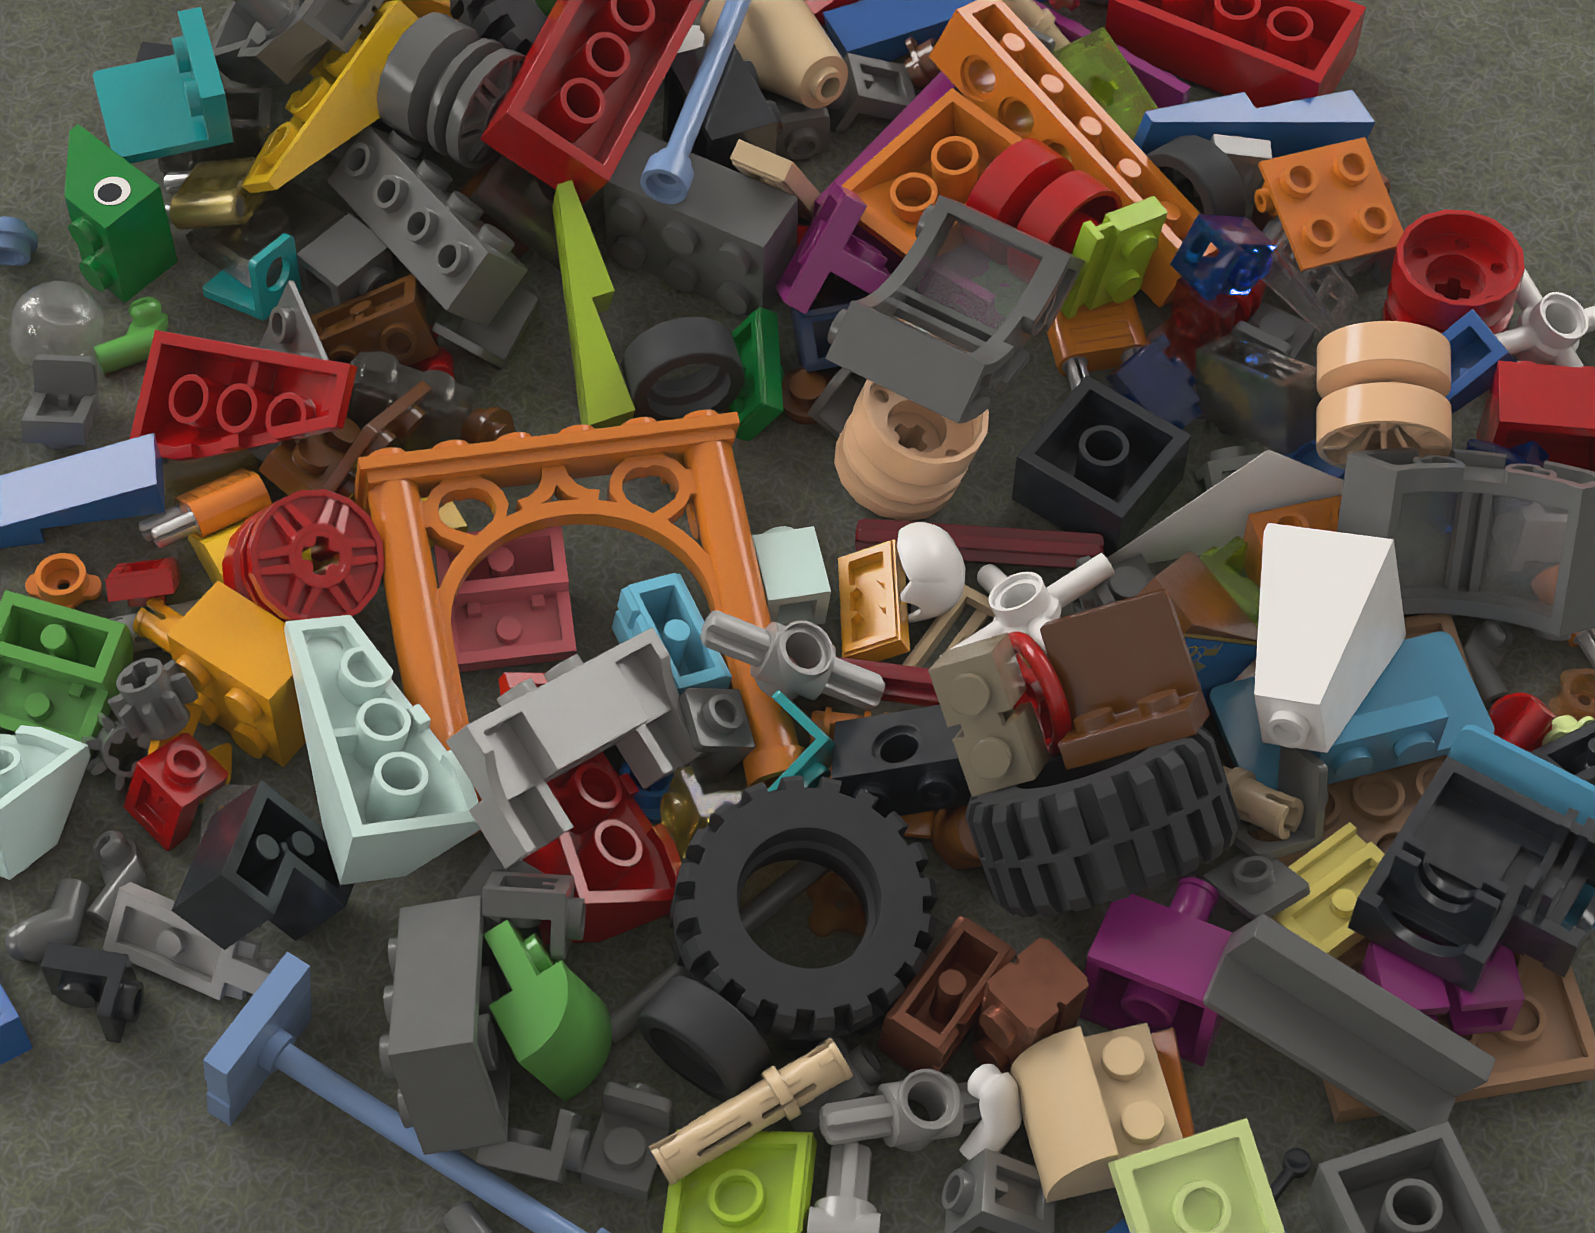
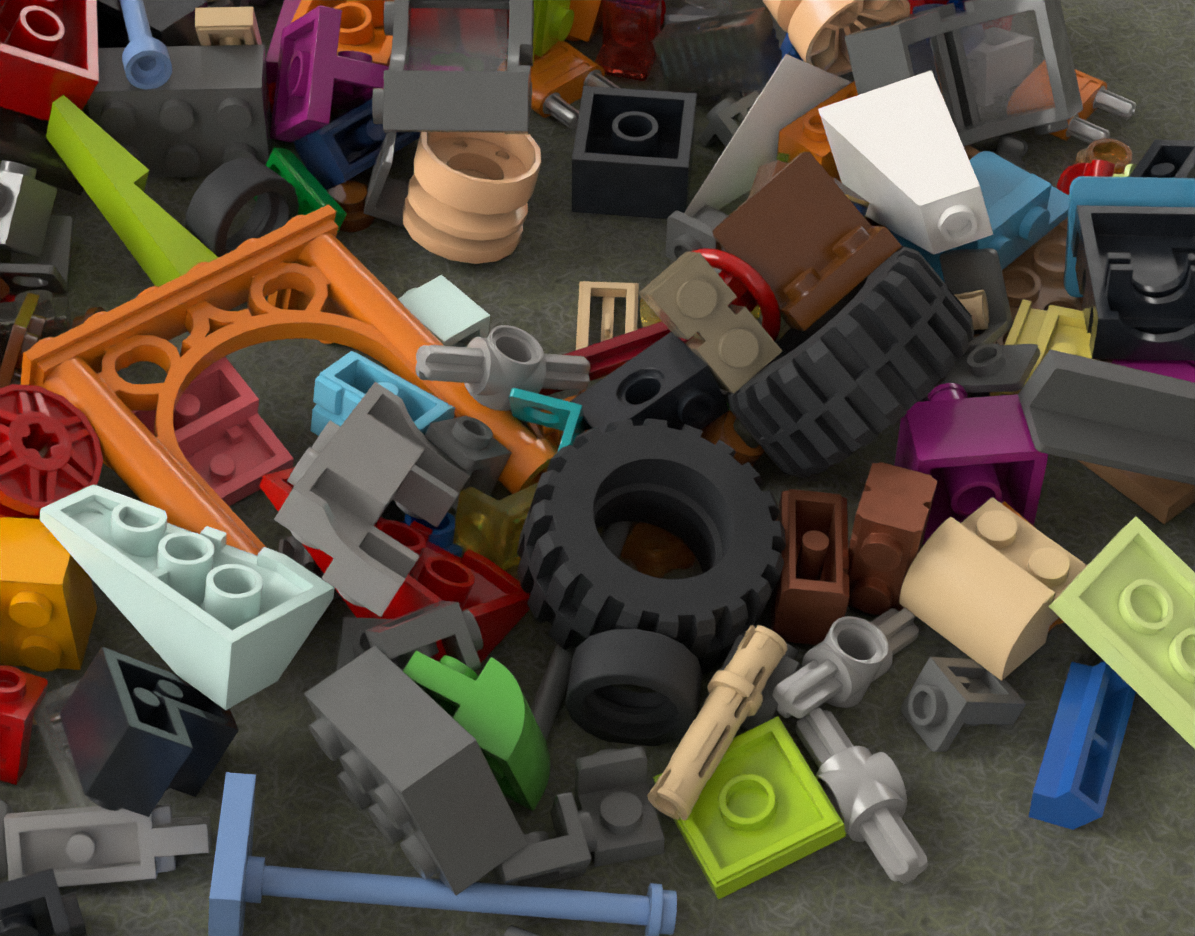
camera: 30 degrees left, 10 degrees down
(871, 603) = (516, 305): light orange plate -> none
(932, 568) = (553, 275): white hair -> none
(996, 544) = (568, 249): dark red axle -> none
(998, 1108) = (916, 632): white arm -> none
(1025, 602) = (645, 260): white bar -> none
(1158, 383) = (634, 69): clear blue brick -> none

